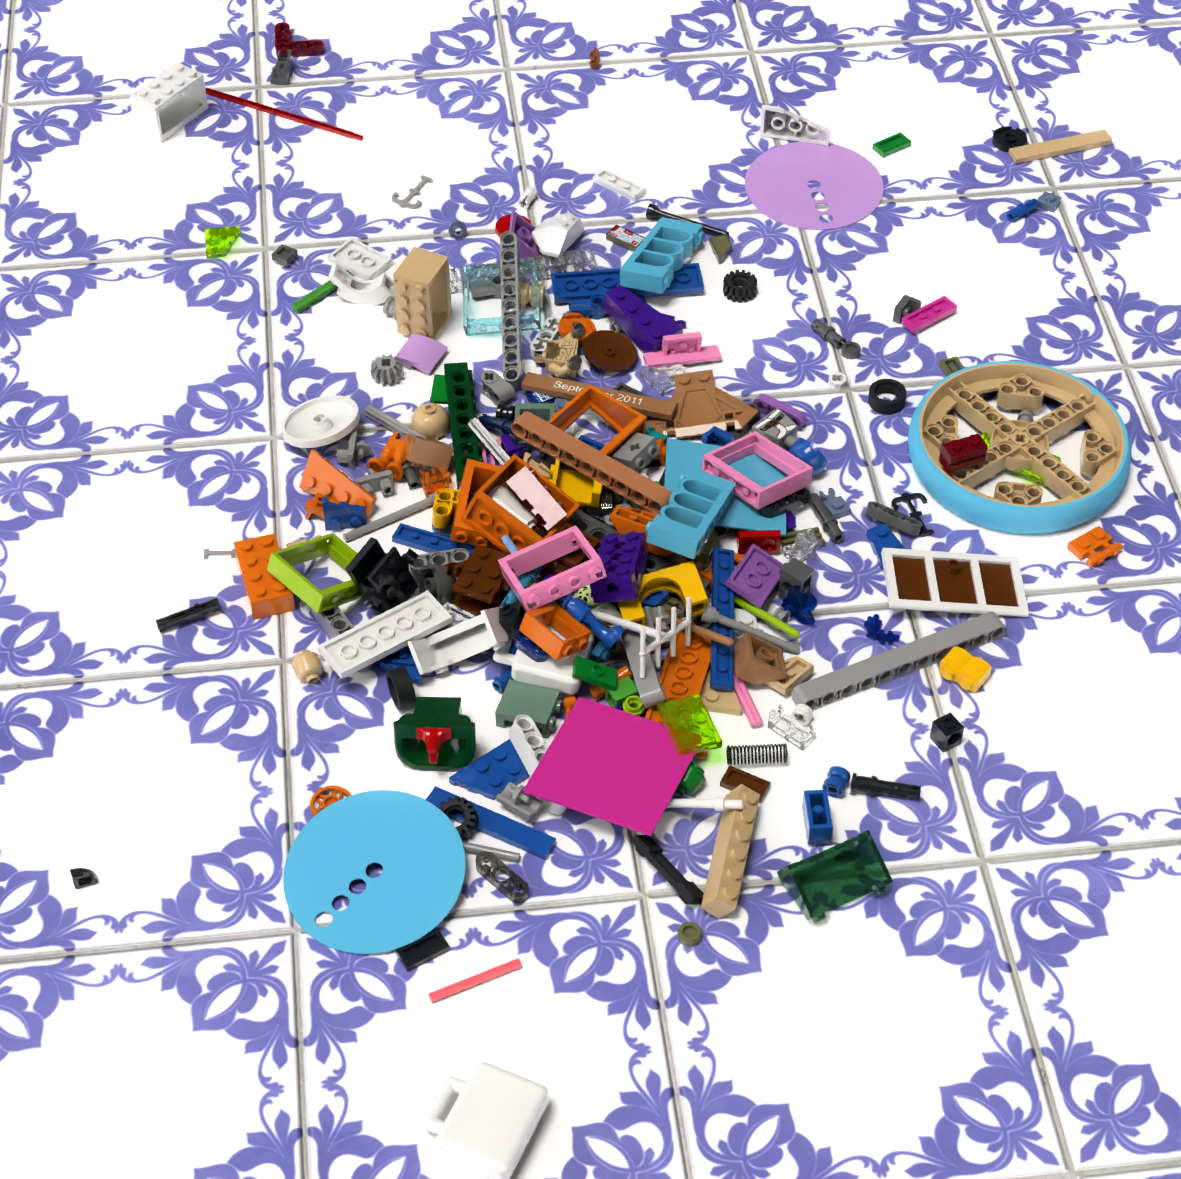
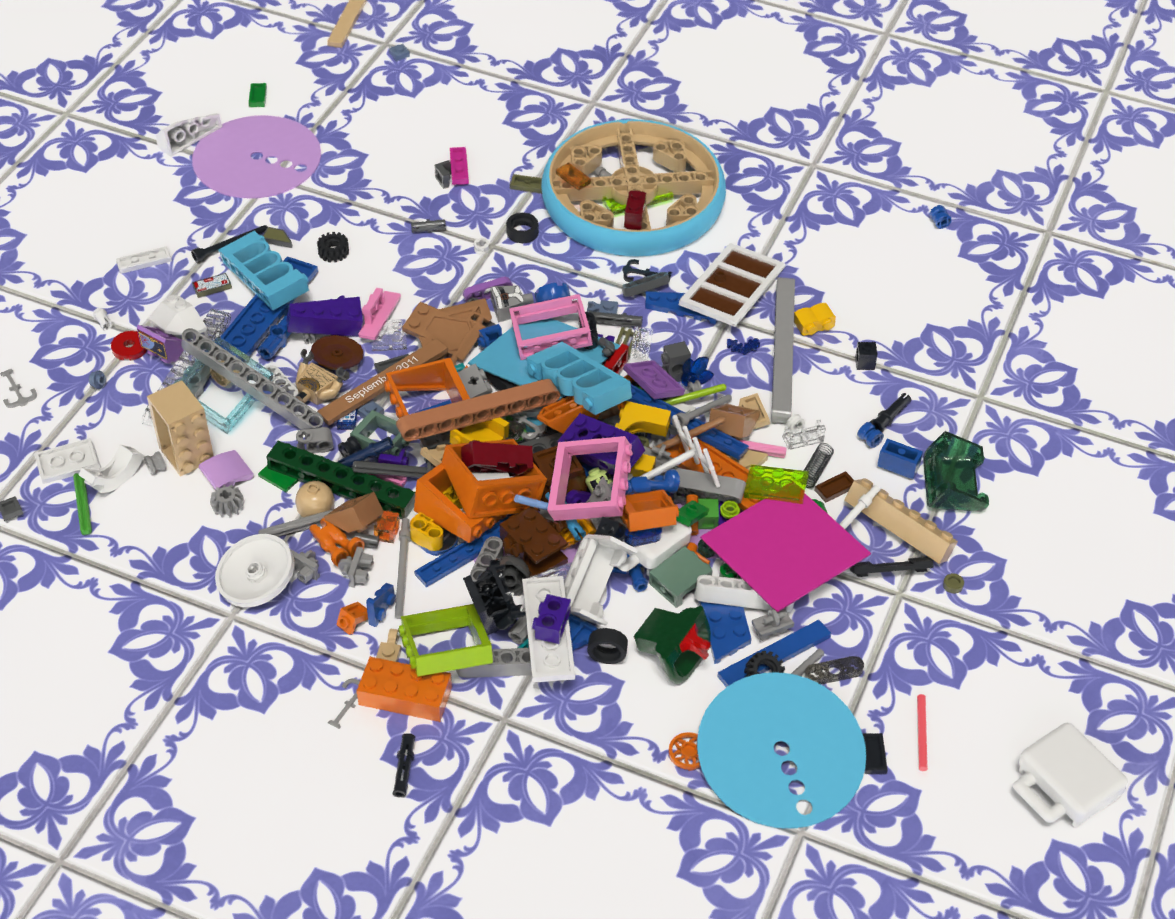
camera: 60 degrees left, 0 degrees up
(307, 666) = (531, 702): tan head -> none
(324, 478) = (329, 596): orange wing -> none
(387, 627) = (552, 618): none -> dark purple brick
(568, 320) = (287, 360): orange tile -> none
(768, 523) = (608, 346): none -> dark grey arm
(850, 350) = (455, 223): dark grey tile -> none
(971, 389) = (573, 176): none -> clear orange tile
(1007, 138) = (314, 37): black tile -> none
(1022, 210) = (396, 68): blue axle -> none
(1090, 543) = (743, 202): orange plate -> none

